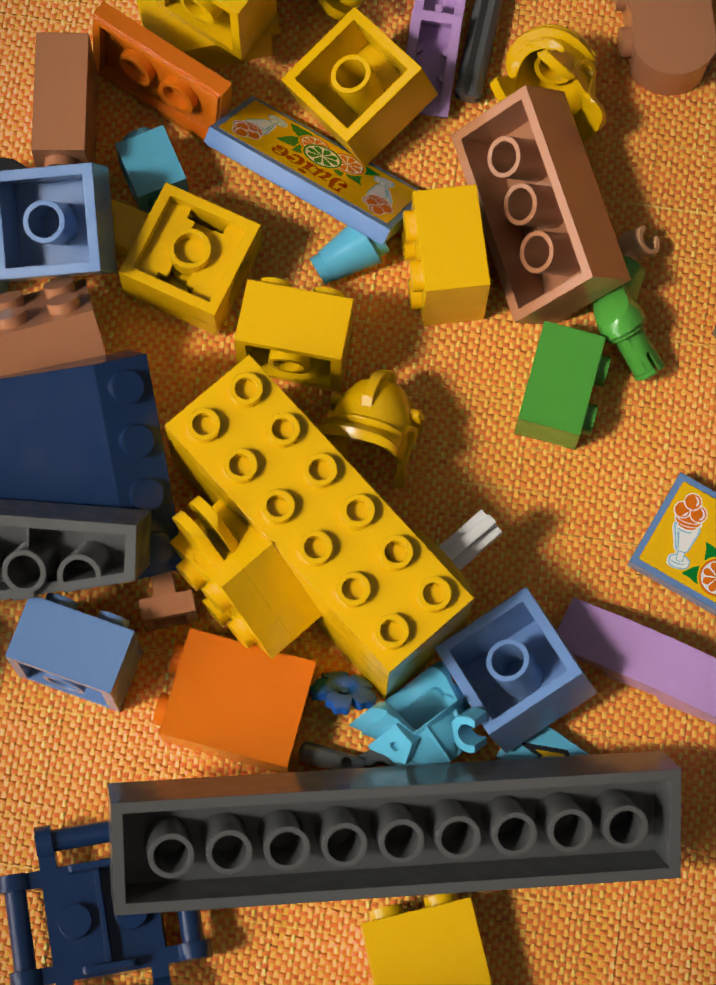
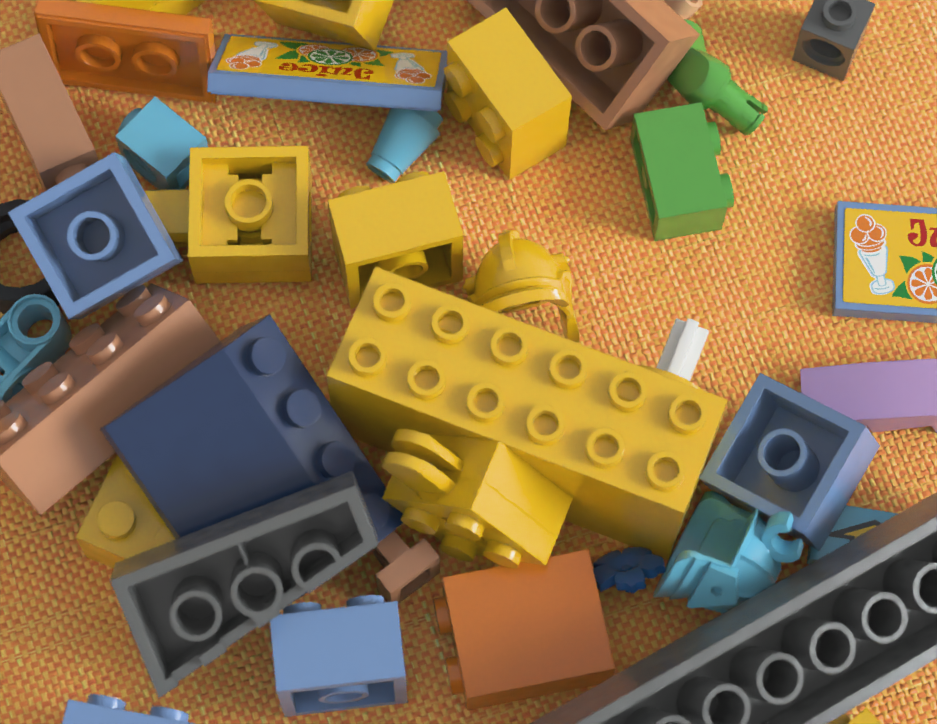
camera: 25 degrees left, 5 degrees down
(335, 759) = (648, 642): dark grey bar -> none

